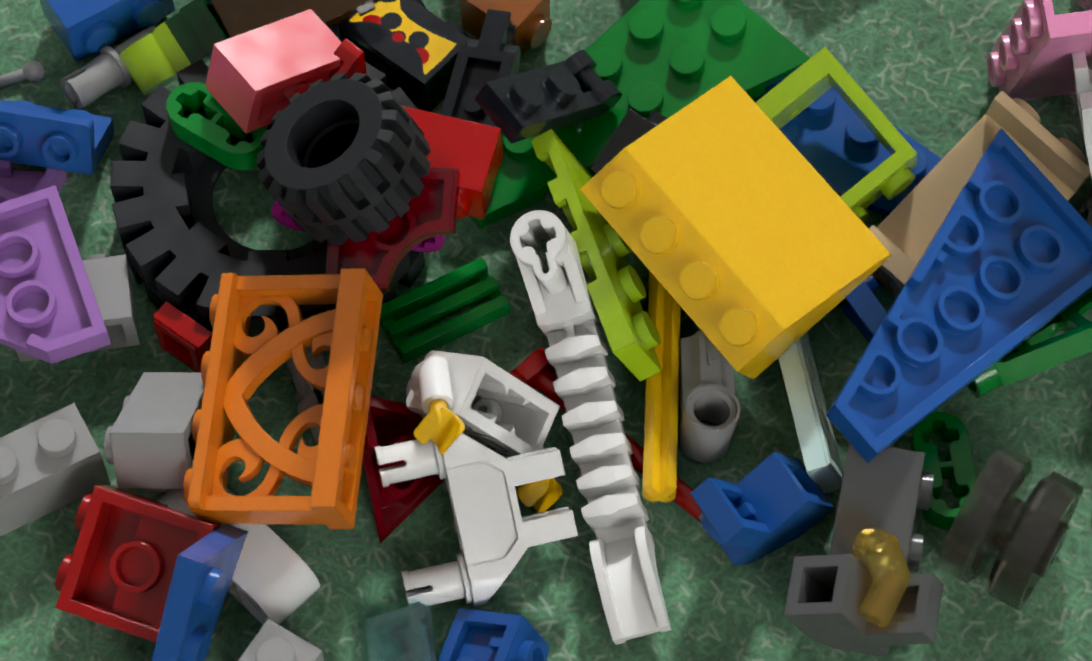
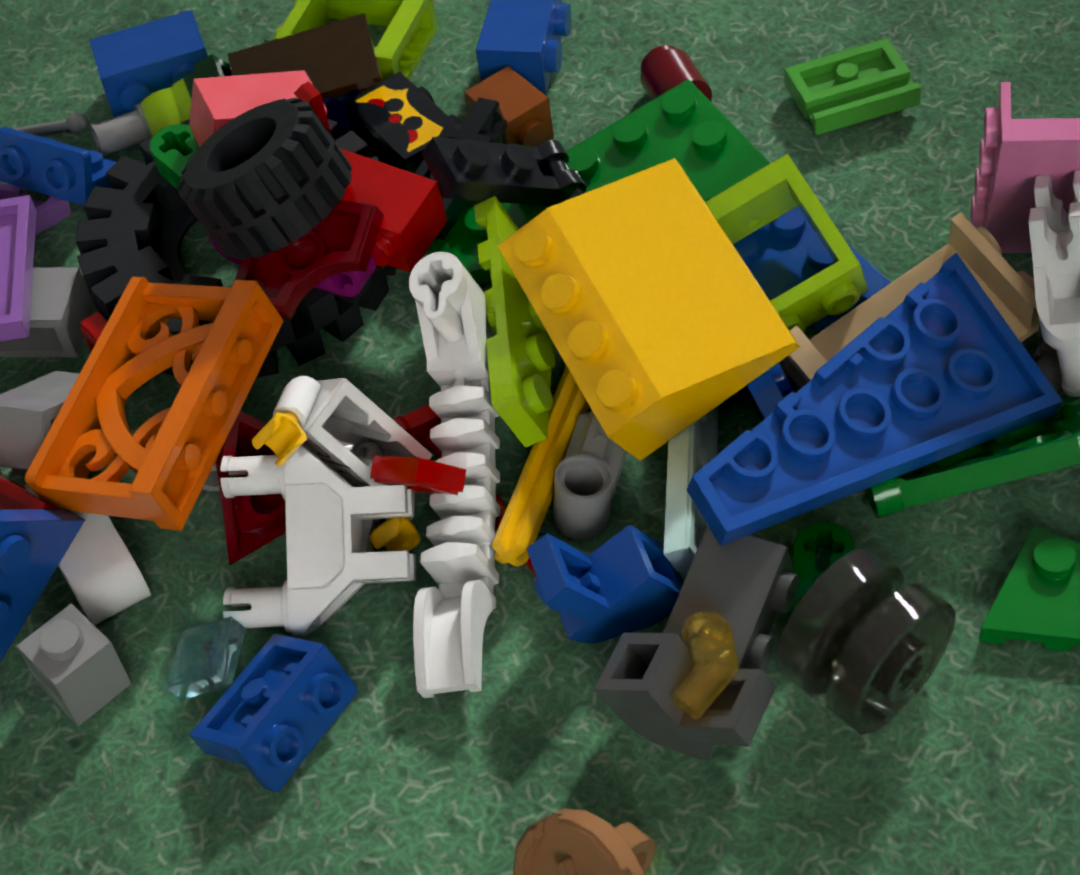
camera: 20 degrees right, 10 degrees down
(433, 291) = (363, 354): green tile -> none
(562, 434) = (418, 474): none -> red tile

